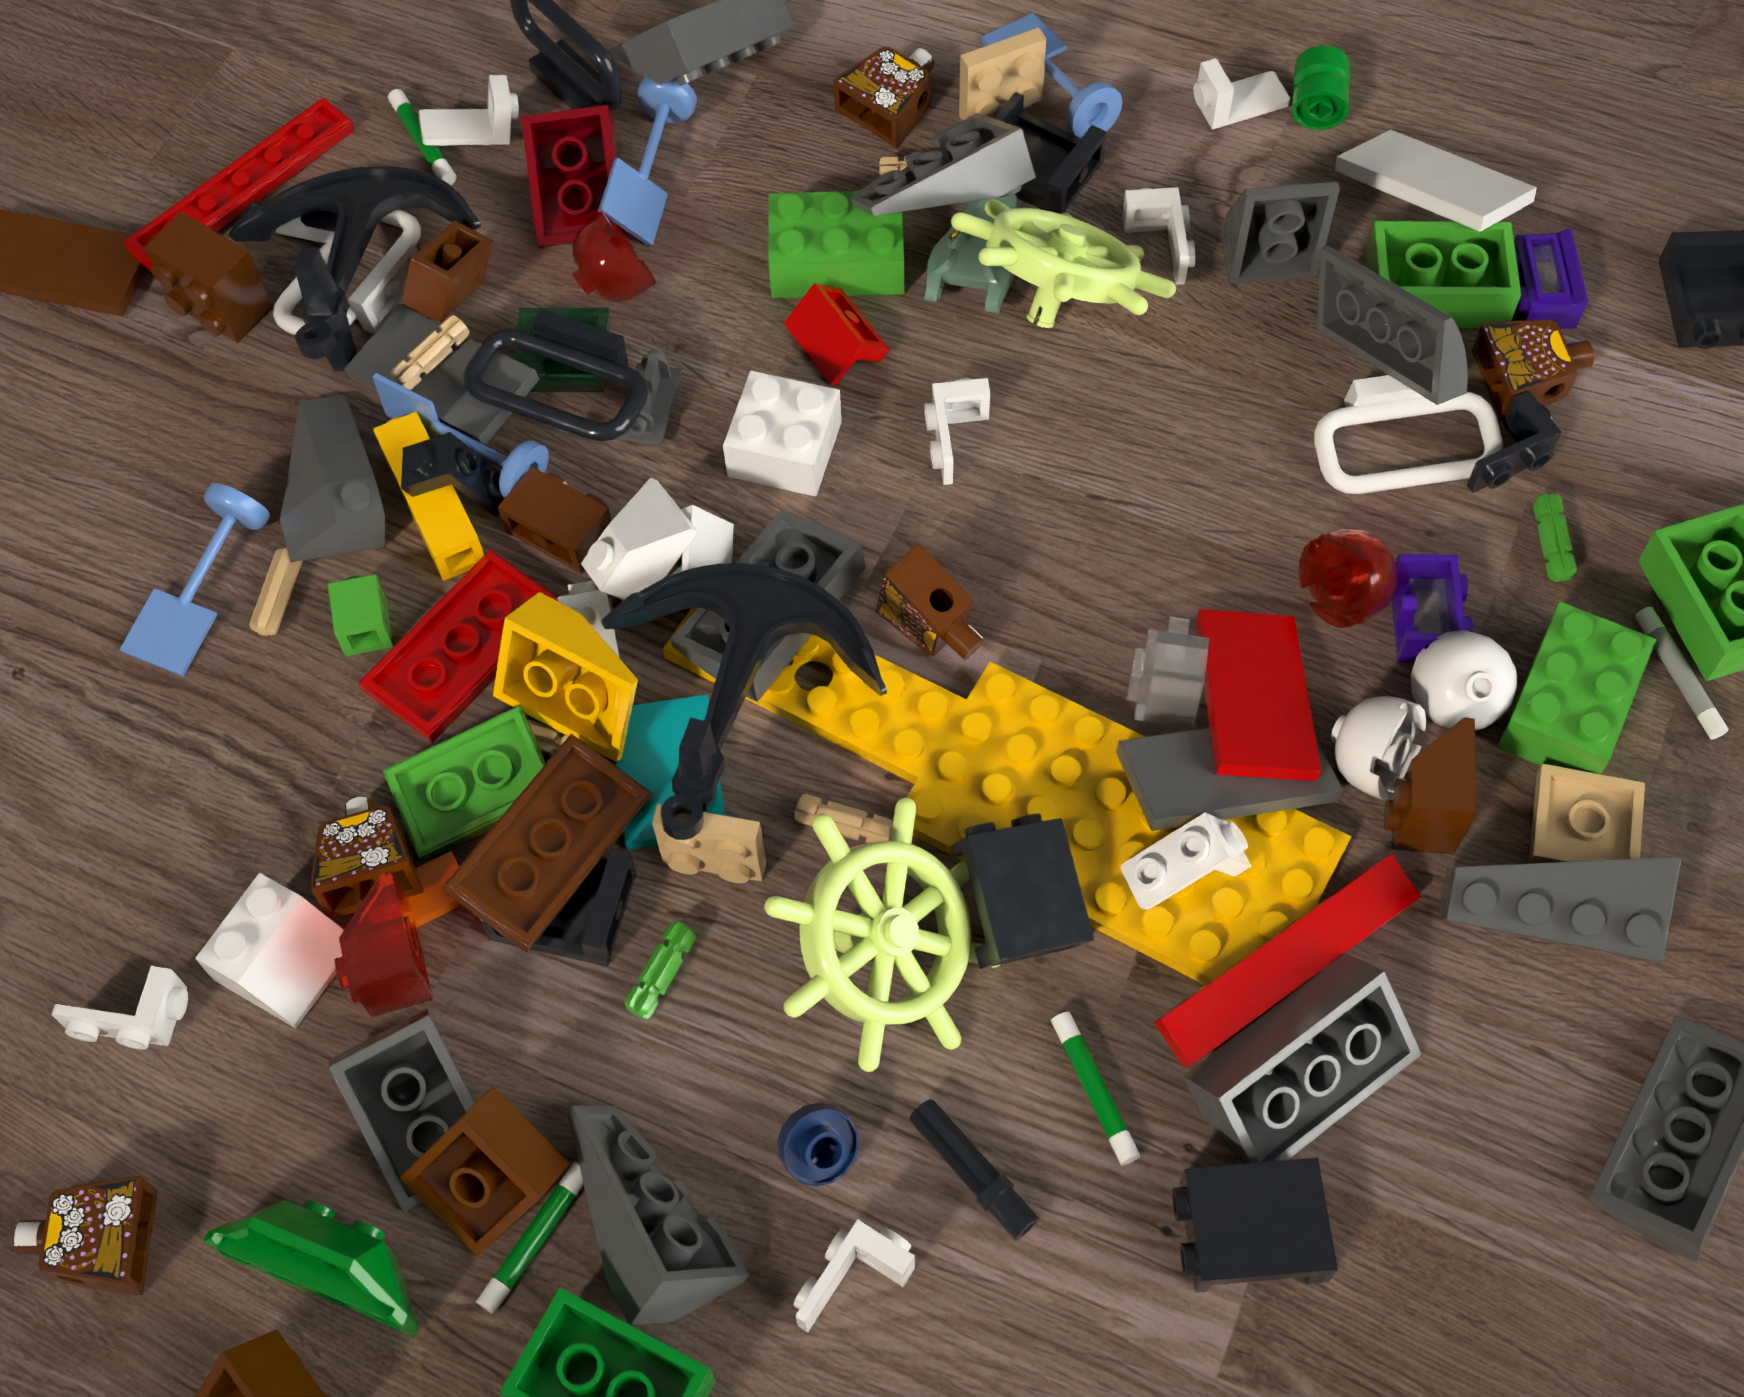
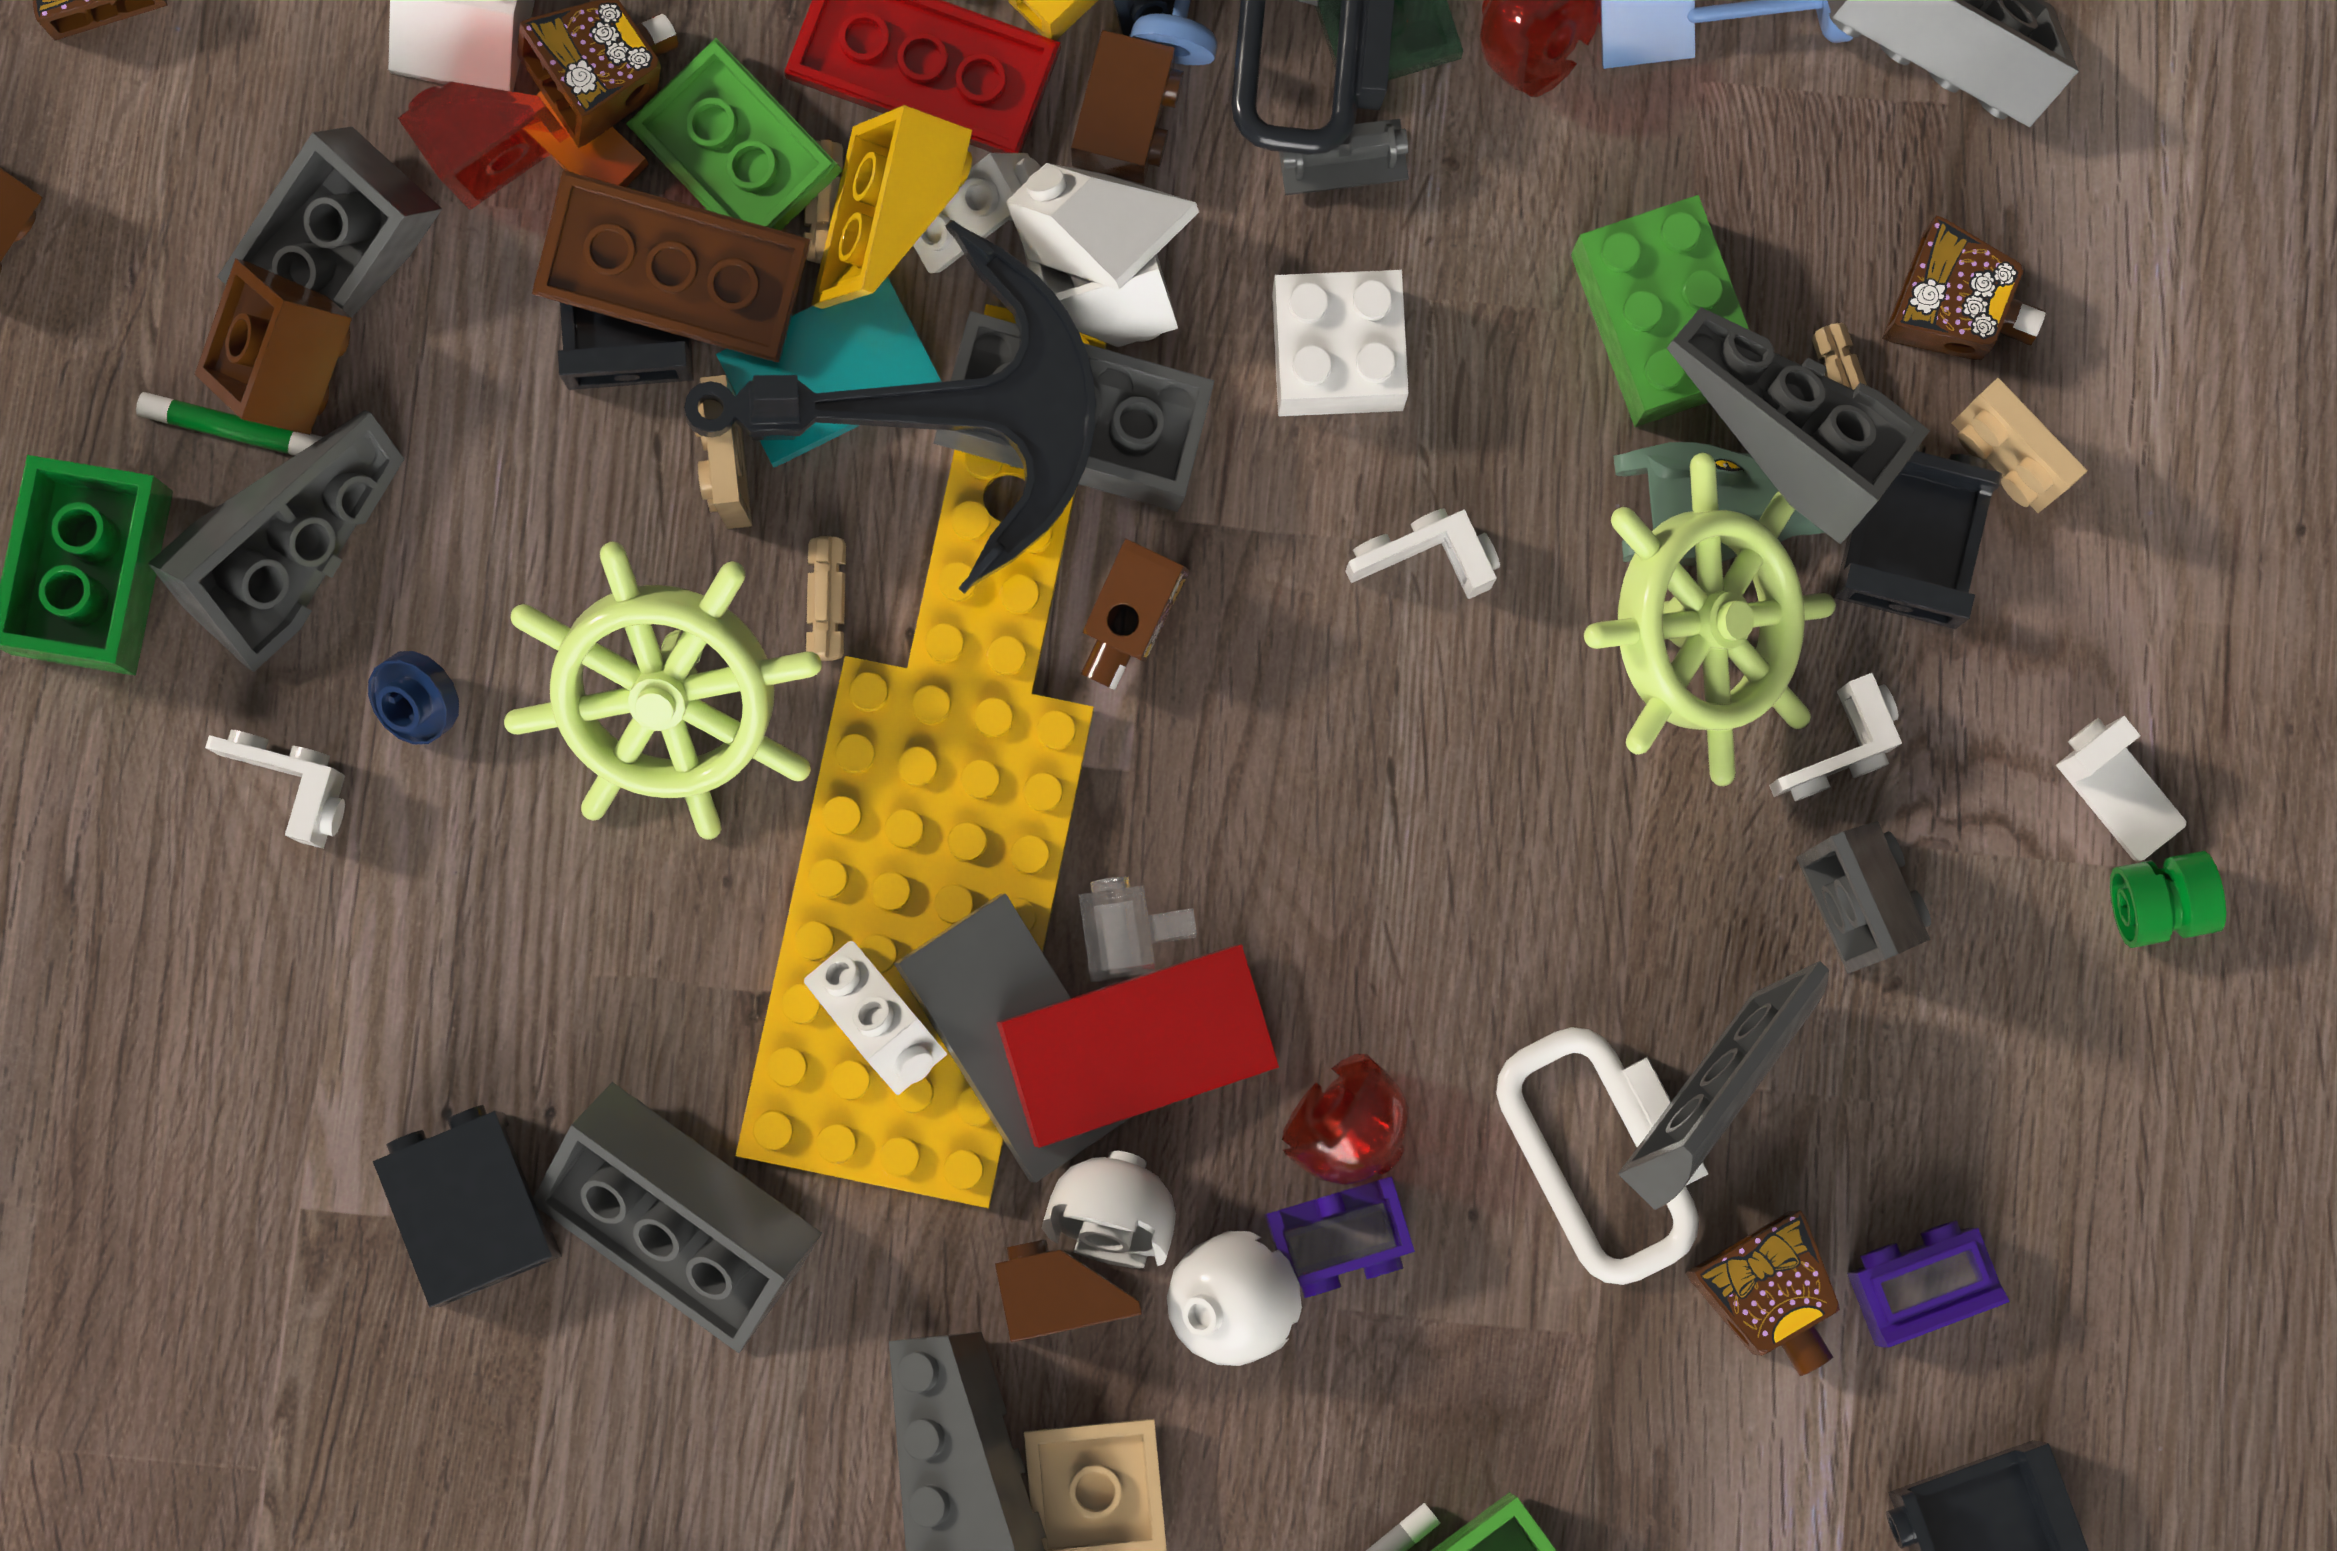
camera: 65 degrees right, 20 degrees up
(321, 1258) = (132, 219): green wedge -> none
(660, 970) = (575, 451): bright green axle -> none
(834, 332) = (1531, 358): red panel -> none
(992, 1190) = (428, 905): black axle -> none
(1024, 889) = (774, 833): black panel -> none
(1093, 105) = (2126, 462): medium blue piece -> none
(1095, 1088) = (584, 988): green bar -> none
(1286, 961) = (794, 1169): red tile -> none
(1435, 180) = (2035, 1095): white tile -> none
(1450, 267) = (1876, 1140): bright green brick -> none
(1535, 437) = (1670, 1314): black bracket -> none
(1554, 537) = (1509, 1377): bright green axle -> none
(1576, 691) = (1269, 1445): bright green brick -> none

